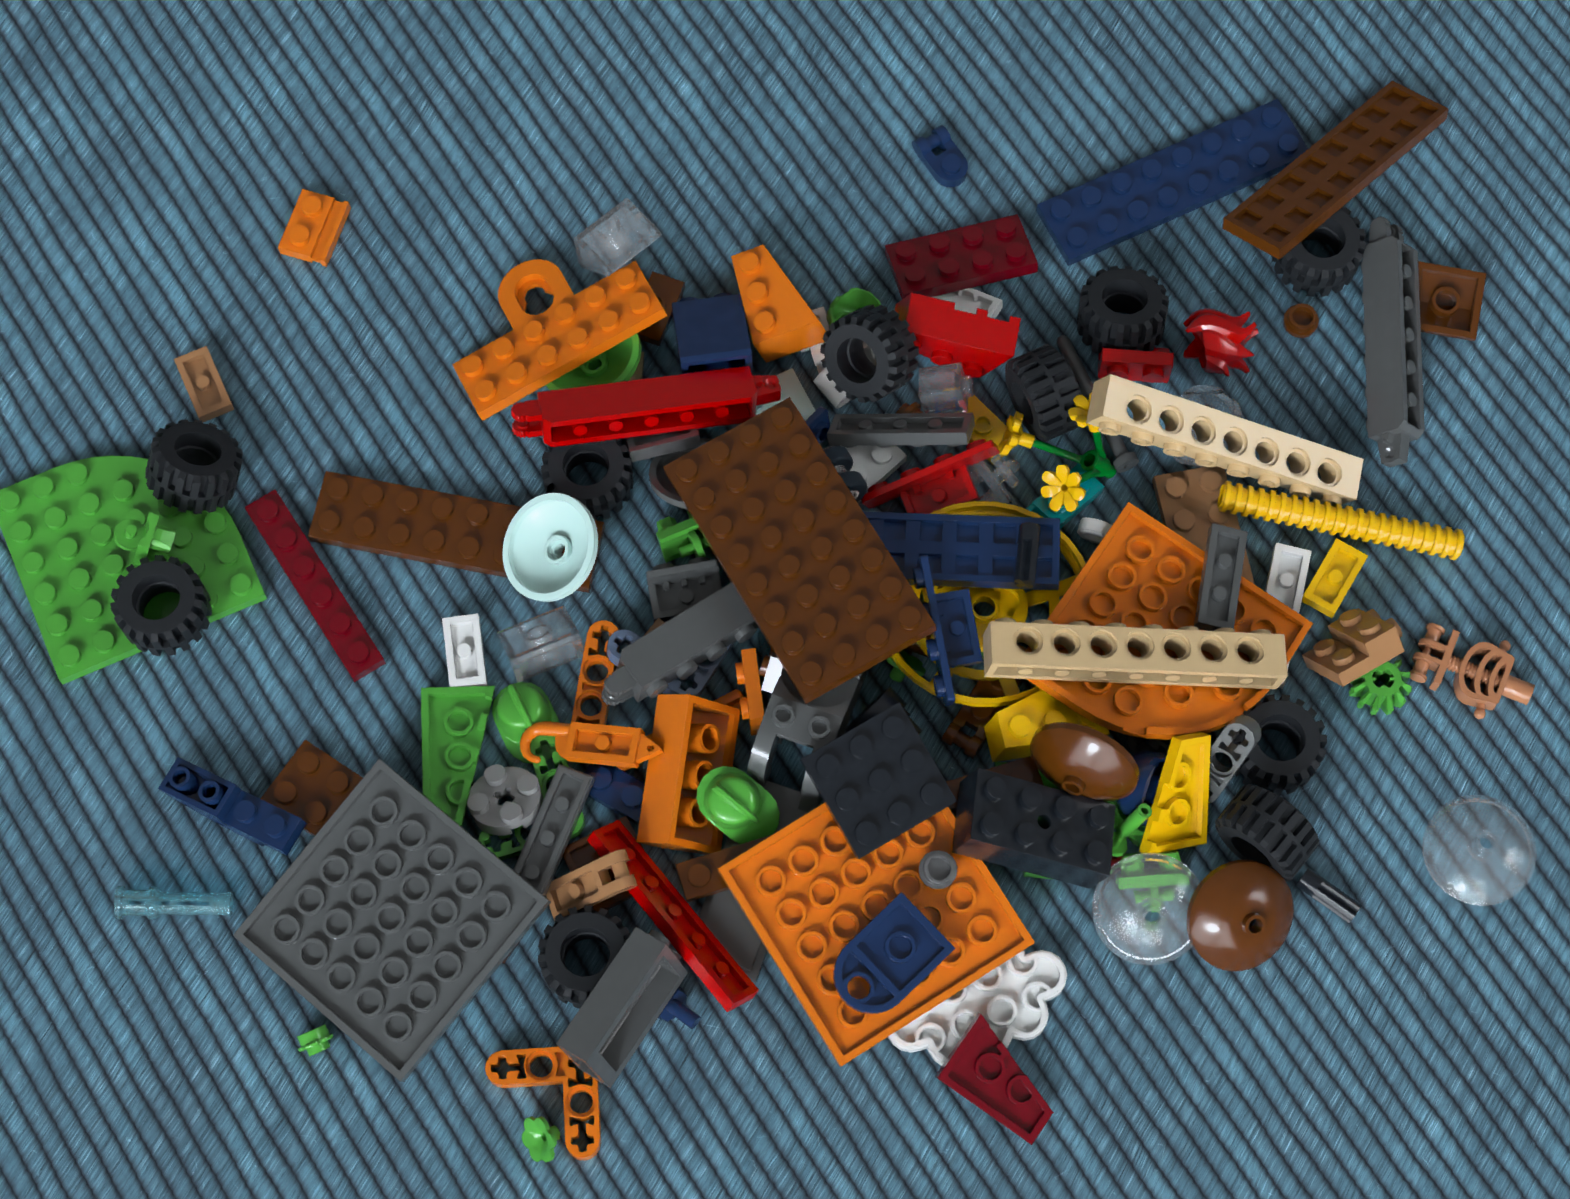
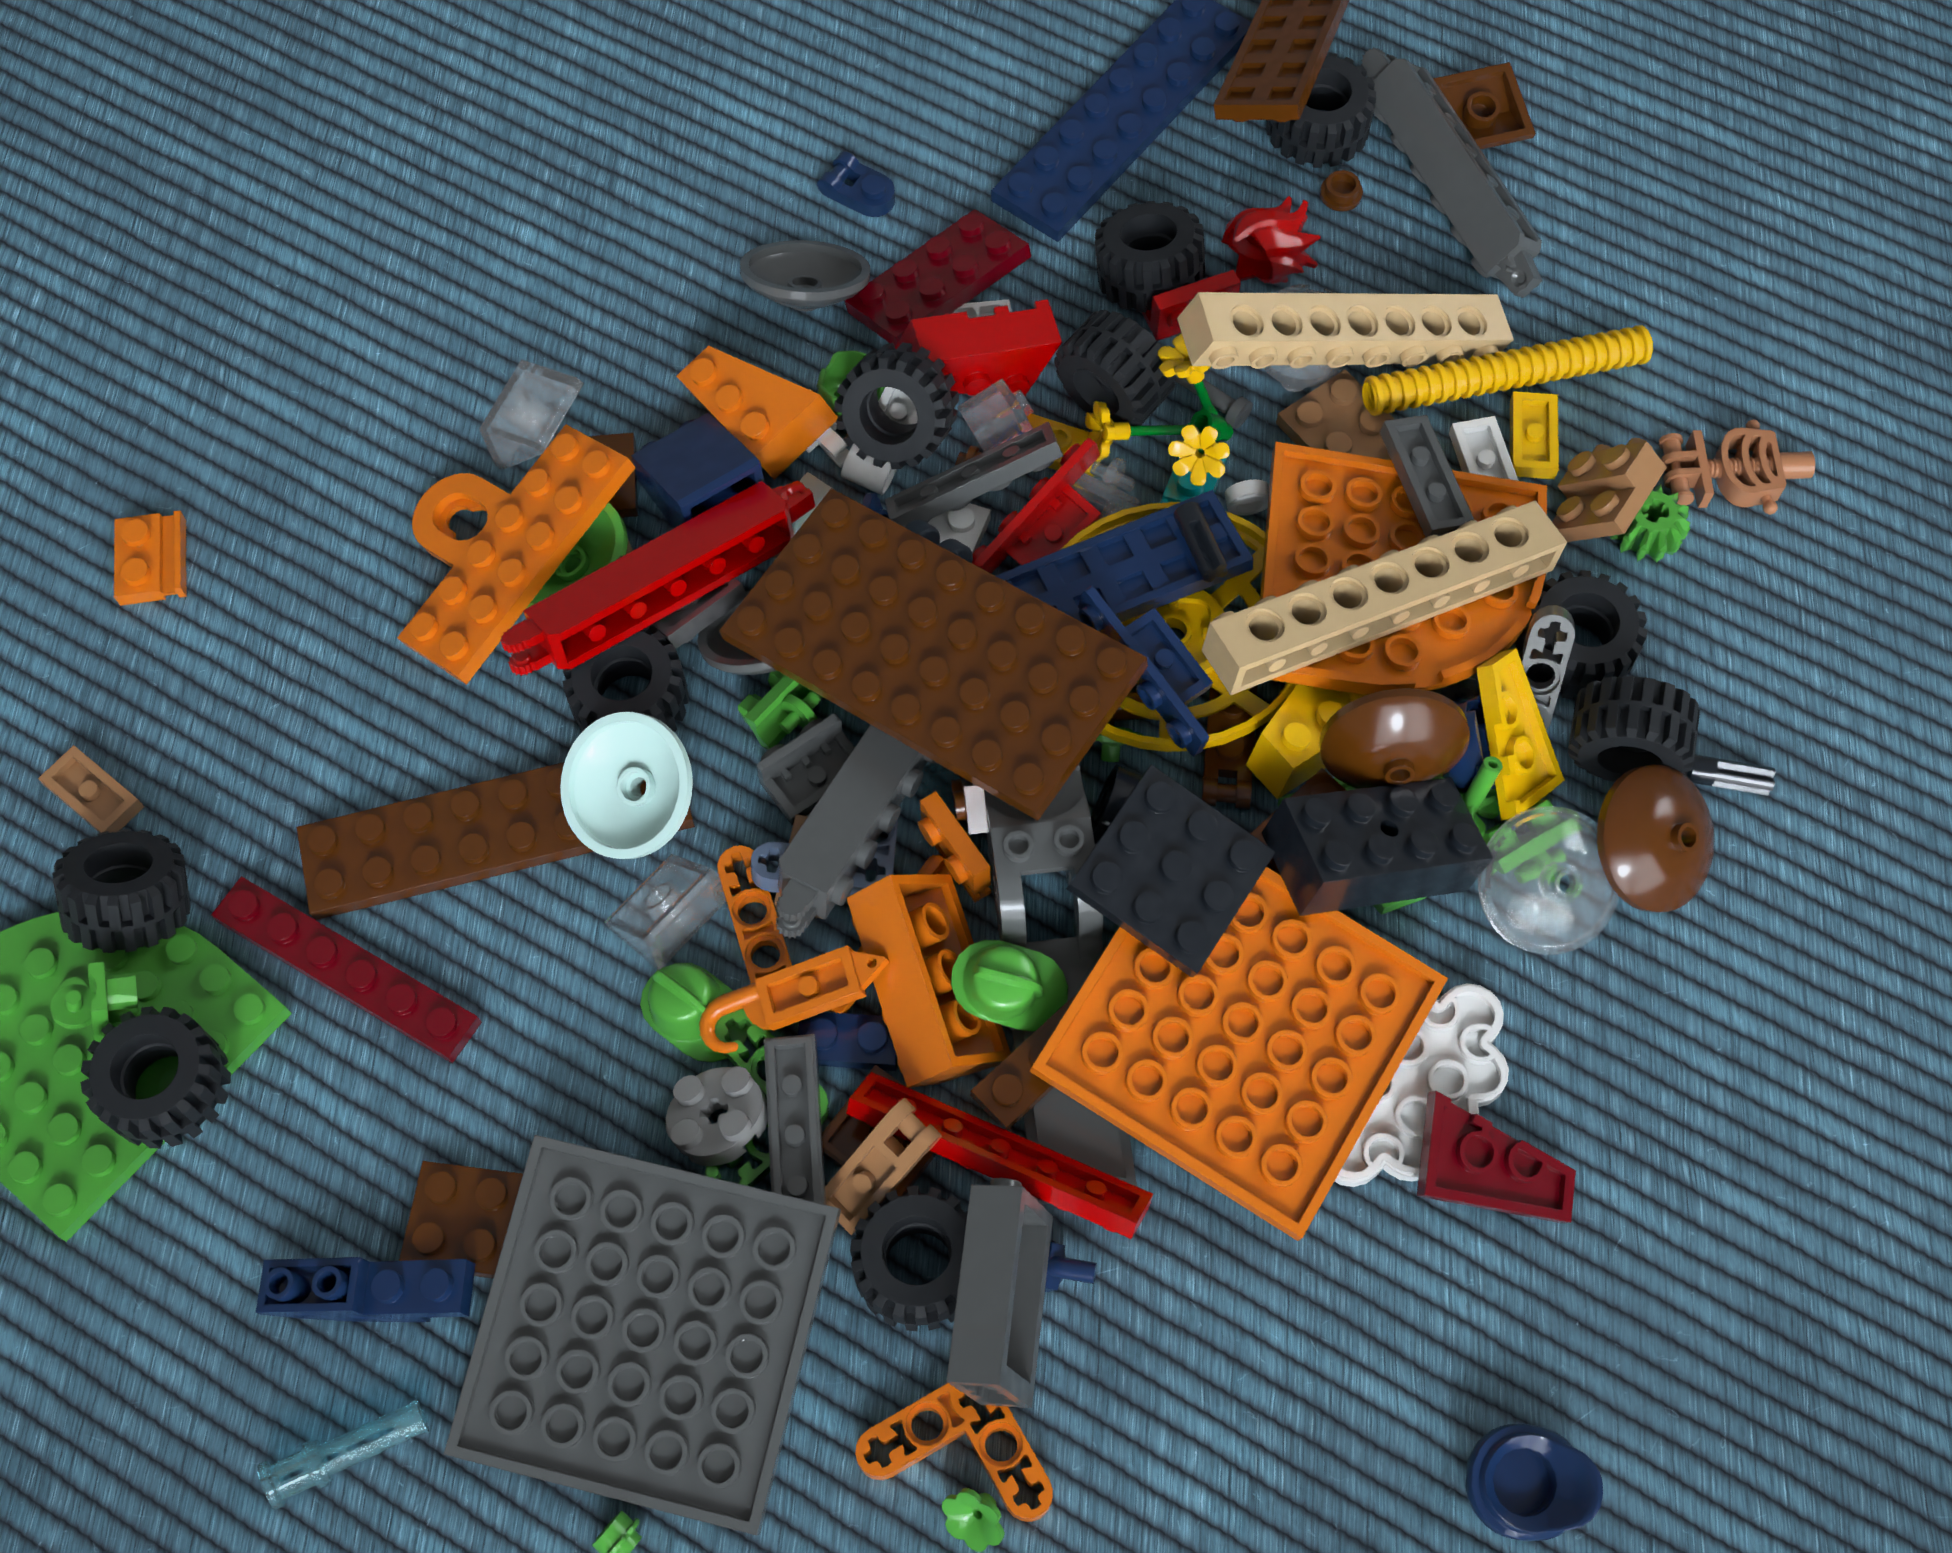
camera: 25 degrees left, 5 degrees down
(451, 743) = (614, 1077): bright green wing -> none
(464, 651) = (576, 962): white plate -> none
(864, 212) = (805, 273): none -> dark grey dish
(891, 955) = (1295, 1071): dark blue plate -> none
(937, 869) = (1294, 943): flat silver plate -> none
(1466, 867) = (1844, 667): clear dish -> none

